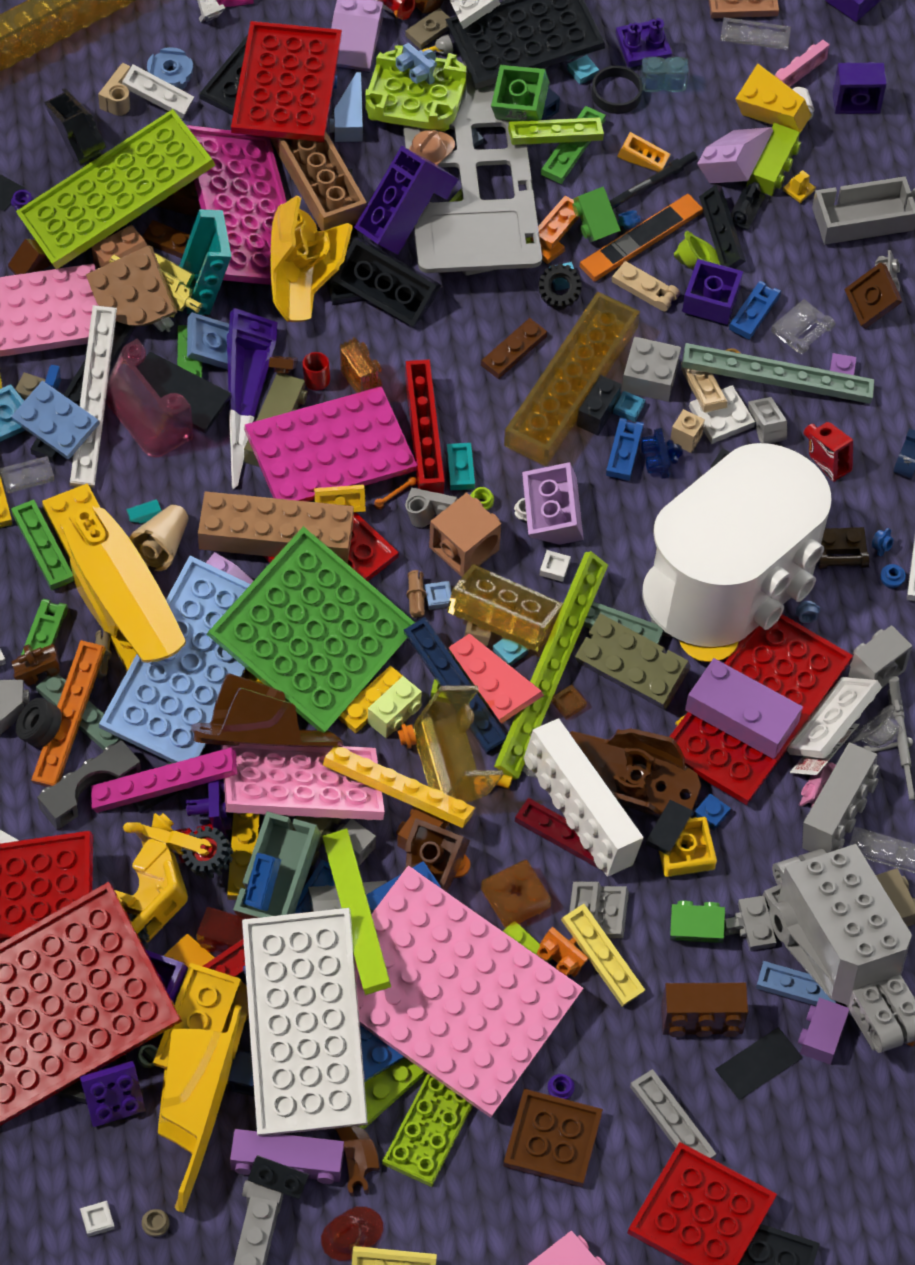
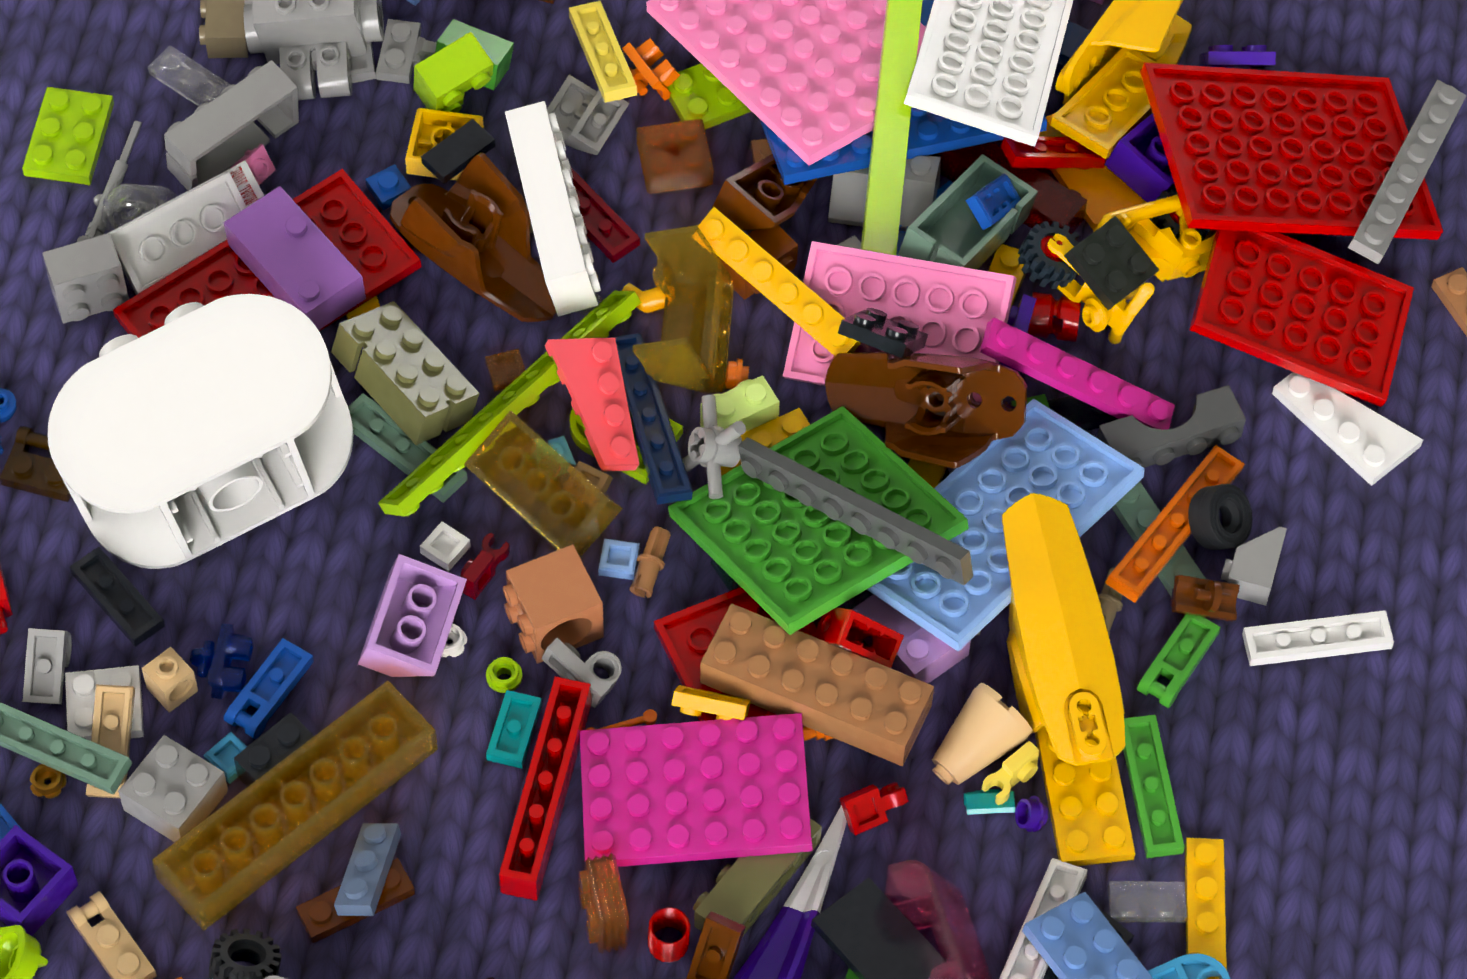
camera: 160 degrees left, 0 degrees up
(114, 506) = (1031, 814): none -> dark purple plate
(135, 520) = (1016, 768): none -> light yellow plate
(160, 846) = (1111, 263): none -> pearl dark grey plate
(219, 479) = (867, 806): none -> red plate
(254, 555) = (849, 628): none -> red torso
(293, 619) = (856, 511): none -> dark grey plate
(308, 747) = (882, 333): none -> black plate
(400, 659) = (713, 446): none -> light grey bar
(512, 355) = (367, 869): none -> sand blue plate
(525, 554) = (482, 568): none -> dark red plate
(701, 879) = (451, 72): none -> lime brick

